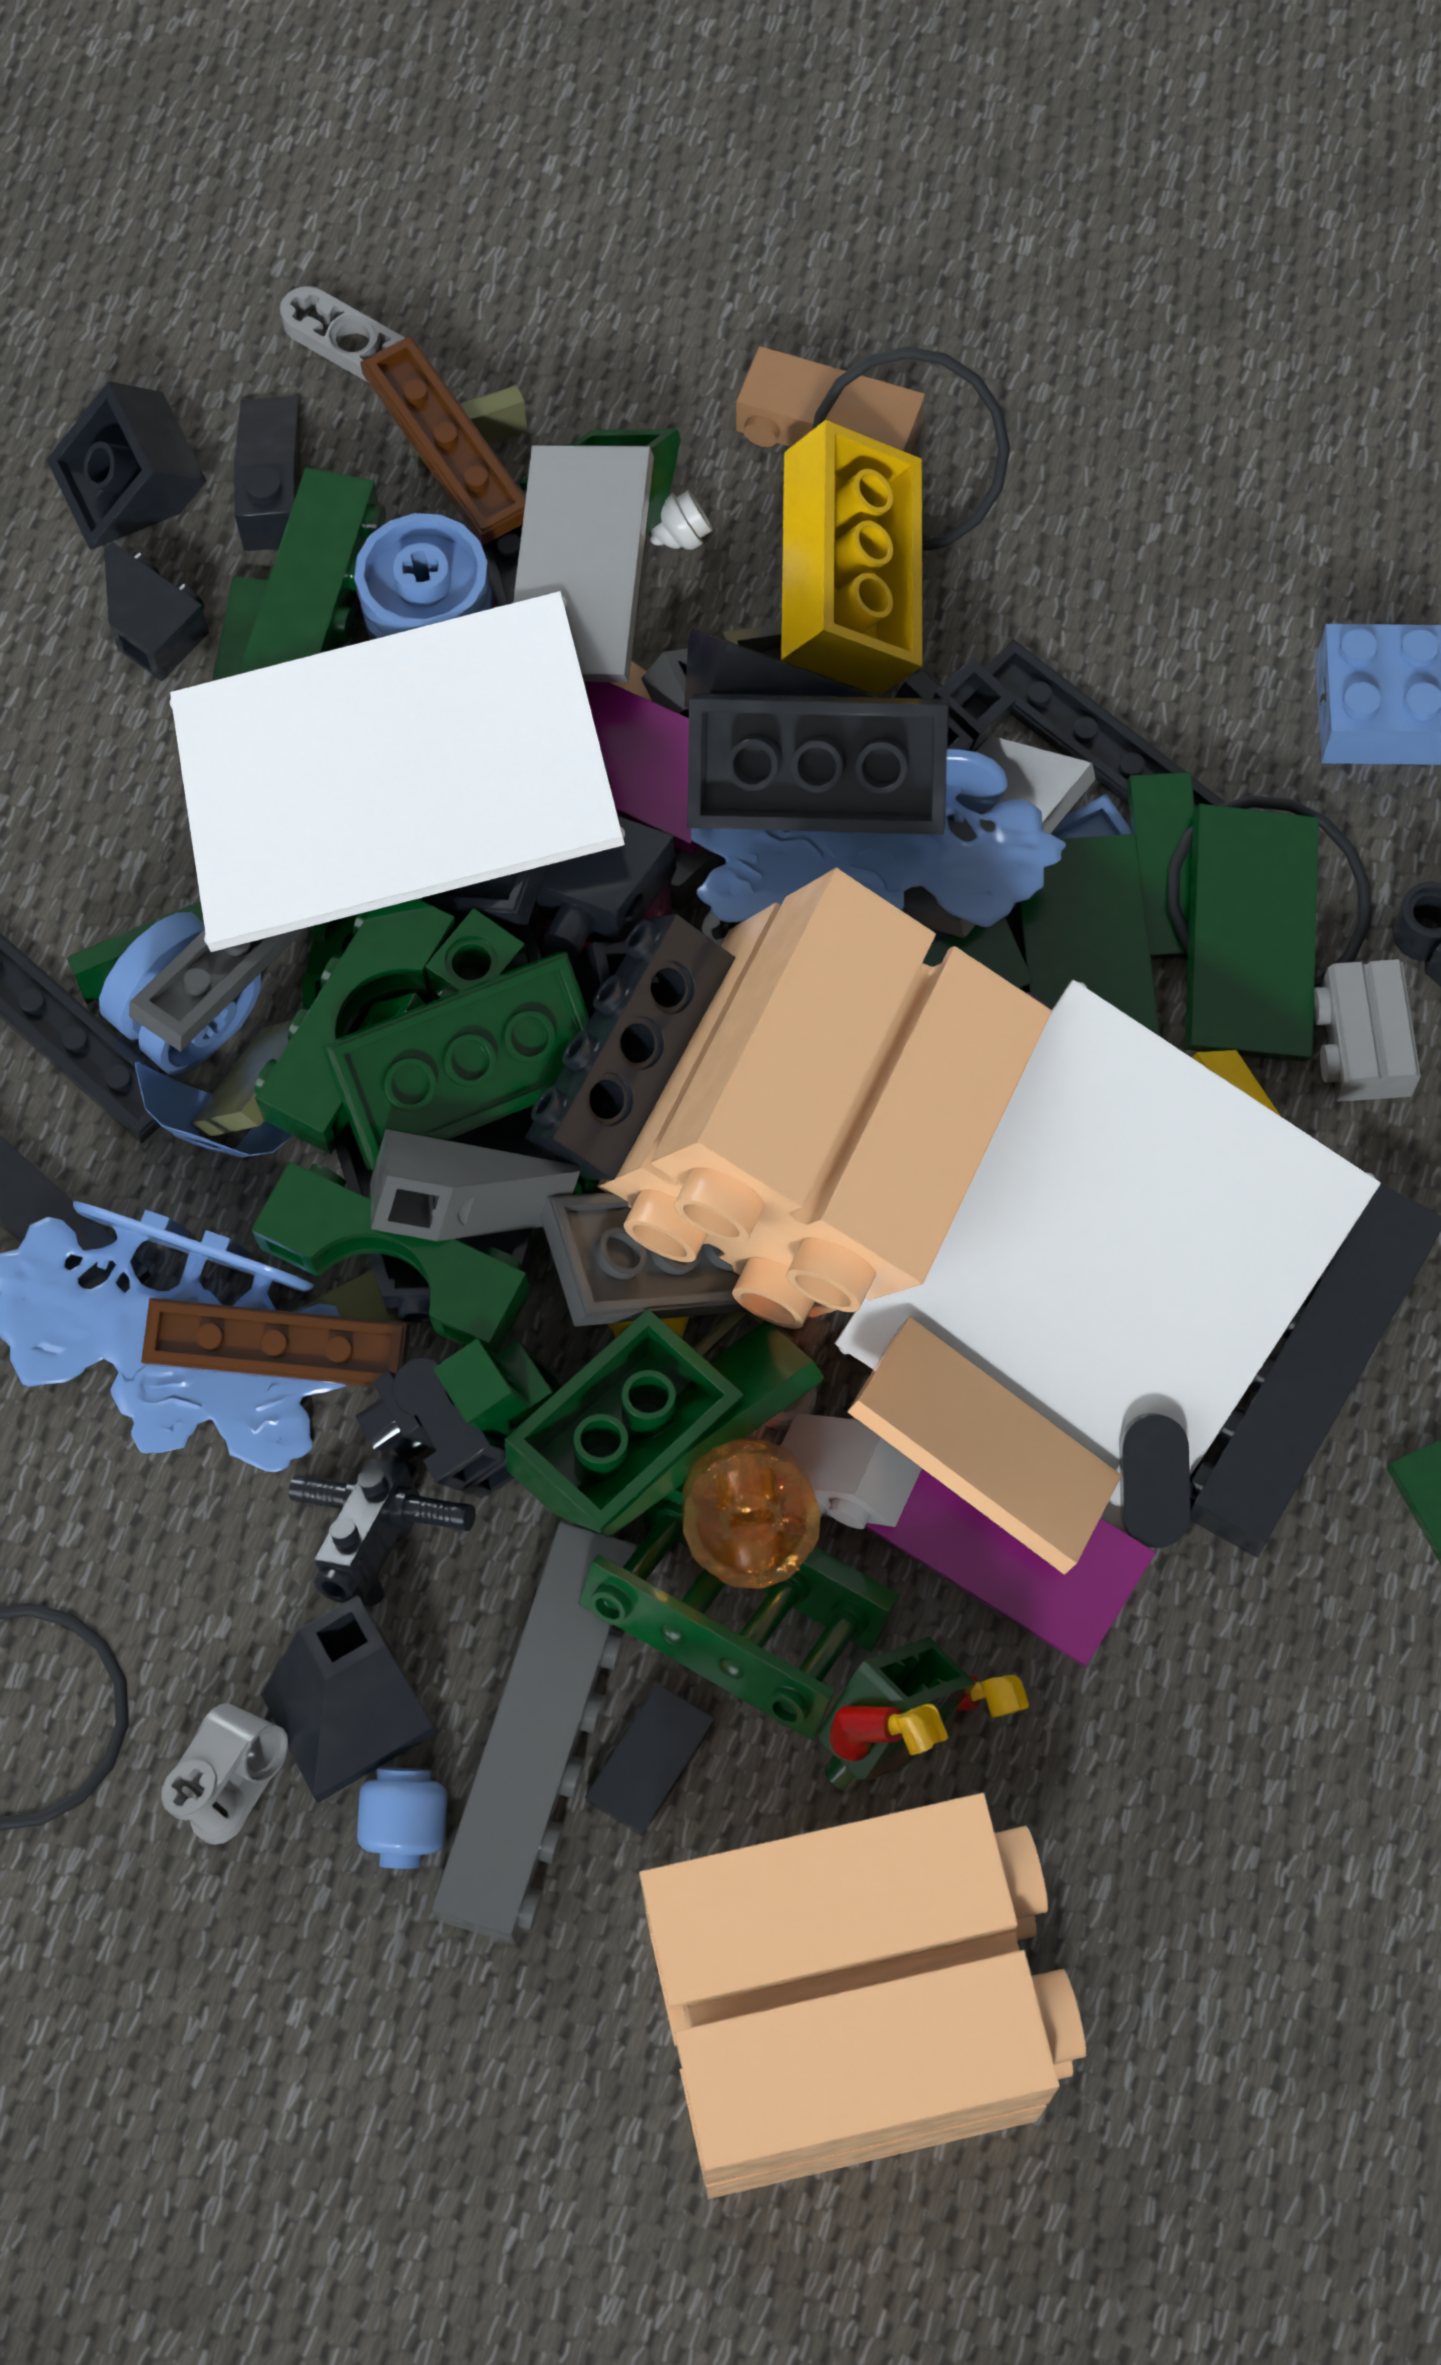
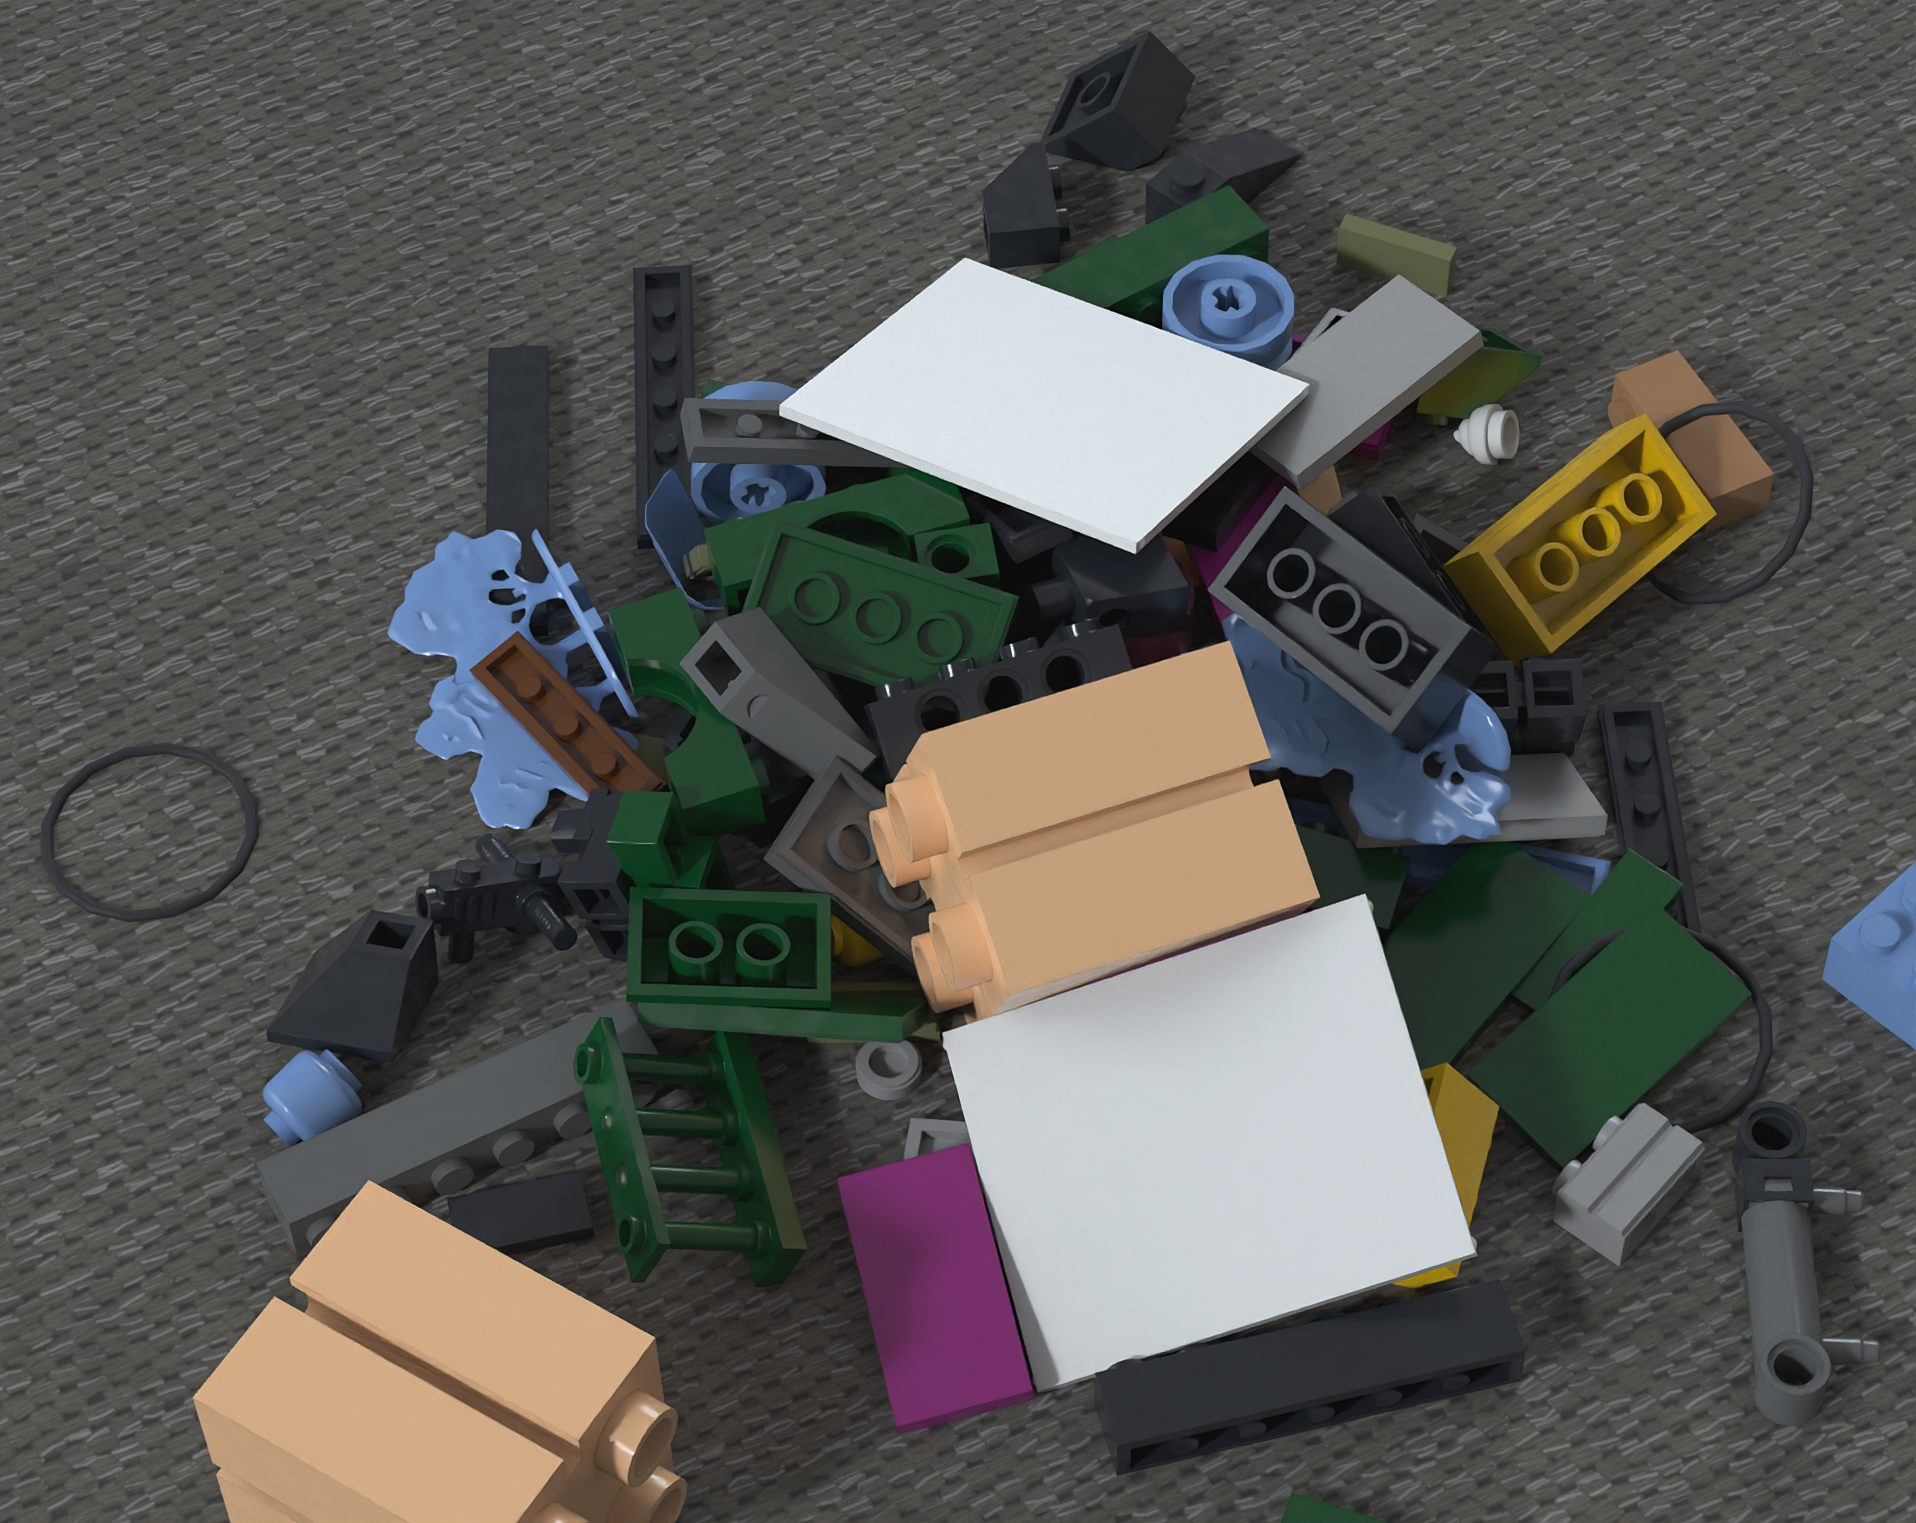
camera: 45 degrees right, 15 degrees down
(224, 1767) = (226, 970): light grey piece -> none
(340, 321) = (1384, 127): light grey beam -> none
(446, 439) = (1358, 234): reddish brown tile -> none
(750, 1513) = (742, 1074): clear orange brick -> none
(852, 1469) = (860, 1132): light grey brick -> none
(900, 1708) = (722, 1317): torso -> none
(986, 1445) = (971, 1187): light nougat tile -> none
(1154, 1480) = (1086, 1338): black tile -> none

